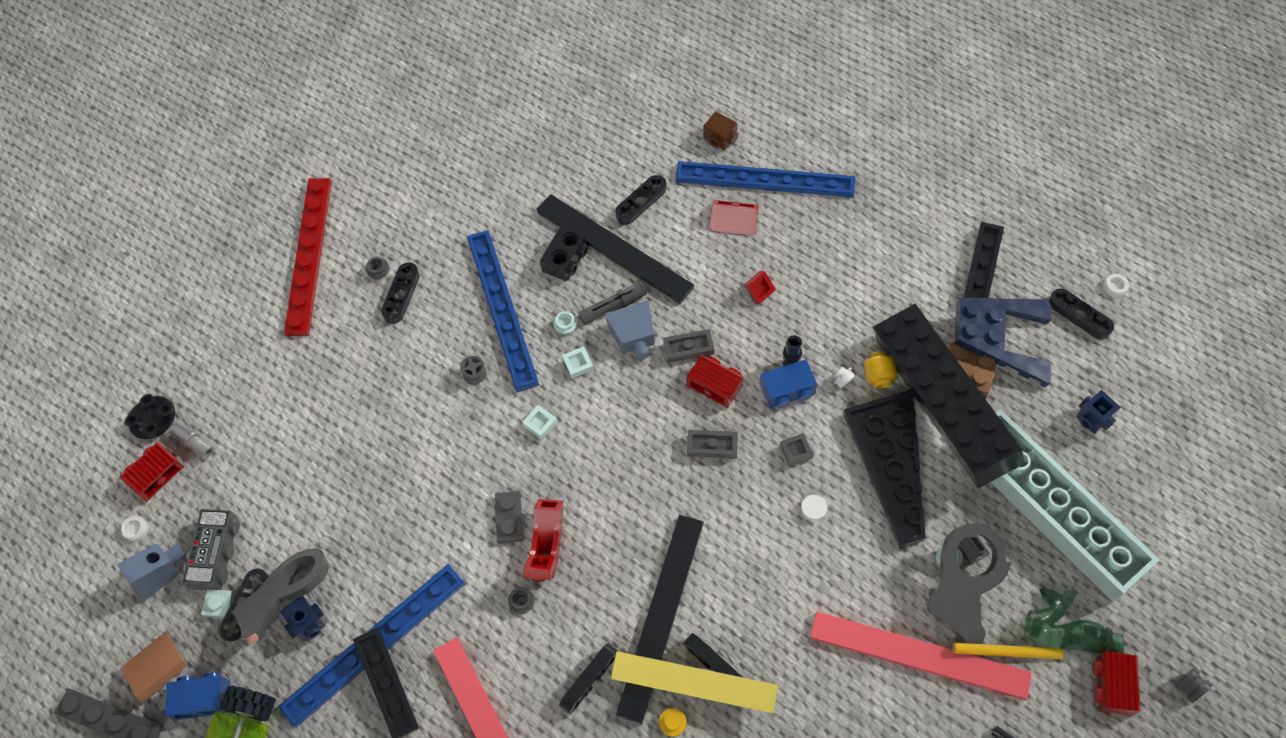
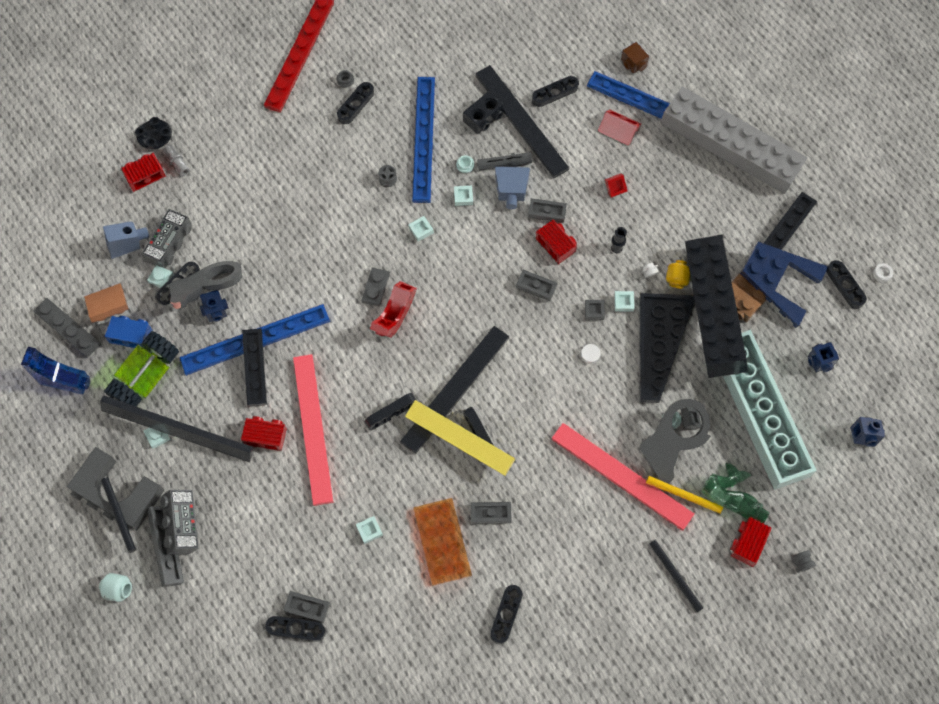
camera: 15 degrees right, 5 degrees up
(134, 528) = (120, 207): white tile -> none
(517, 593) = (361, 340): dark grey plate -> none
(672, 722) = (436, 459): yellow plate -> none
(788, 384) = (607, 262): blue brick -> none
(828, 426) = (624, 301): none -> light aqua plate
(877, 188) = (733, 140): none -> light grey brick
(1193, 486) = (867, 431): none -> dark blue brick

